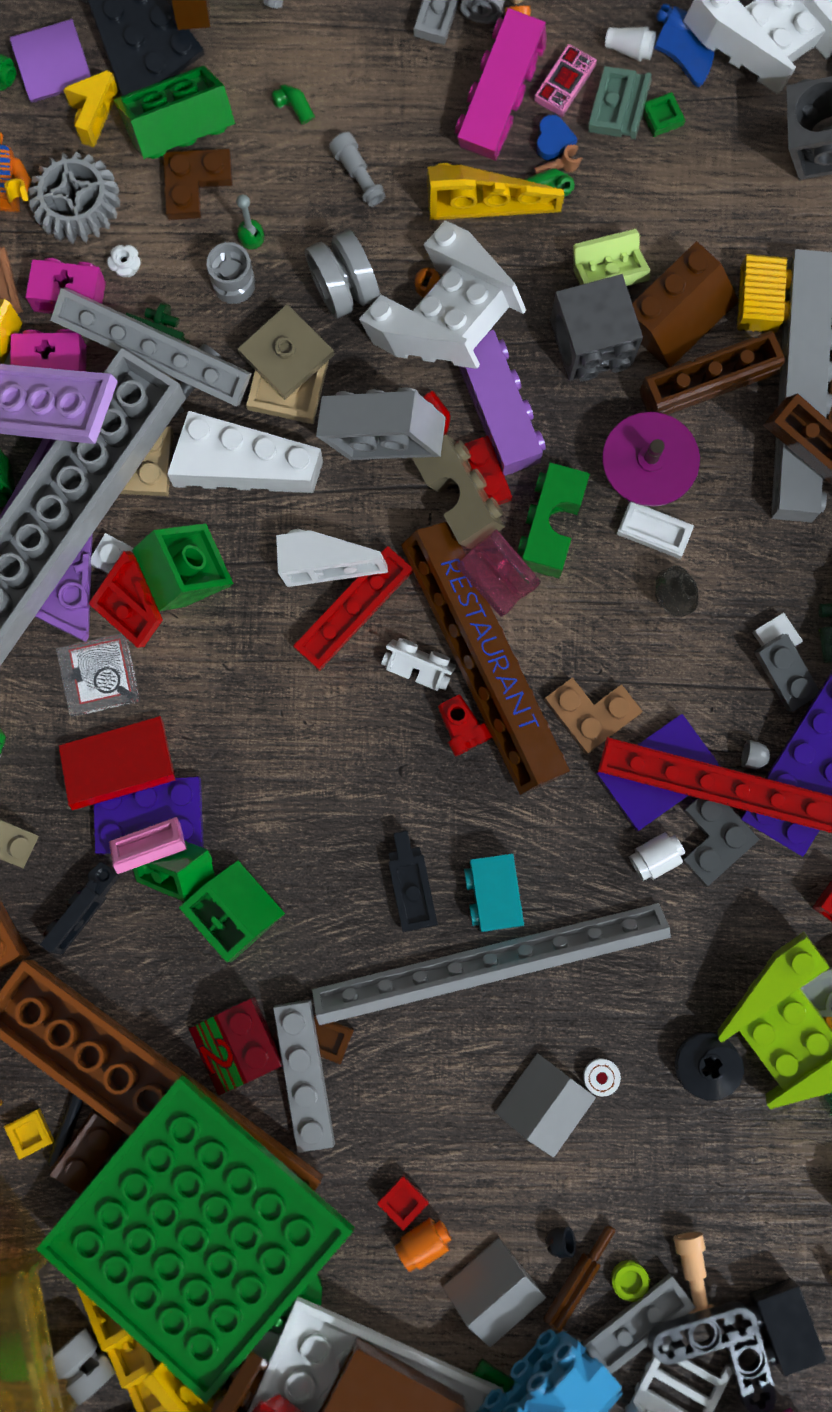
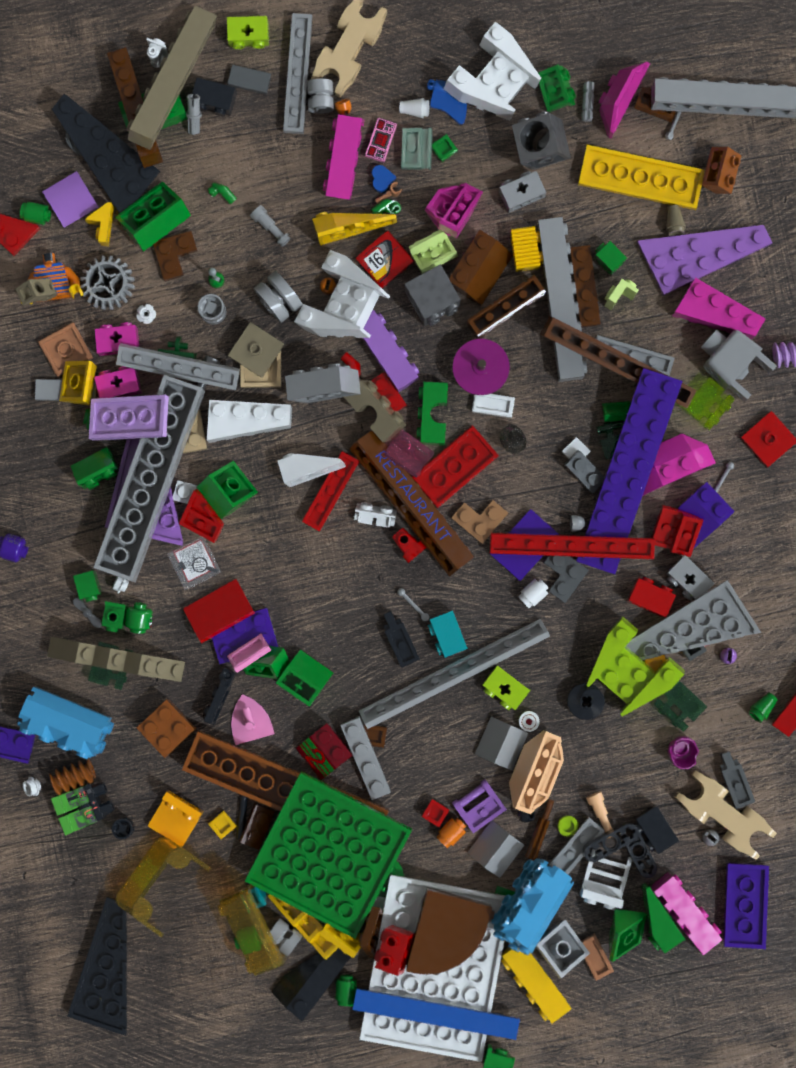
camera: 10 degrees left, 5 degrees up
(53, 1283) = (259, 896): none -> teal slope
(123, 963) = (249, 721): none -> bright pink shield
(462, 853) = (424, 616): none -> light grey hinge
(487, 1220) = (482, 812): none -> medium lavender plate
(532, 258) = (385, 259): none -> slope
(571, 615) = (455, 466): none -> red tile
(593, 1019) = (517, 690): none -> lime brick
(595, 1172) = (536, 772): none -> light nougat wedge
(659, 202) = (453, 207): none -> dark pink wedge
(776, 203) = (533, 191): none -> light grey brick

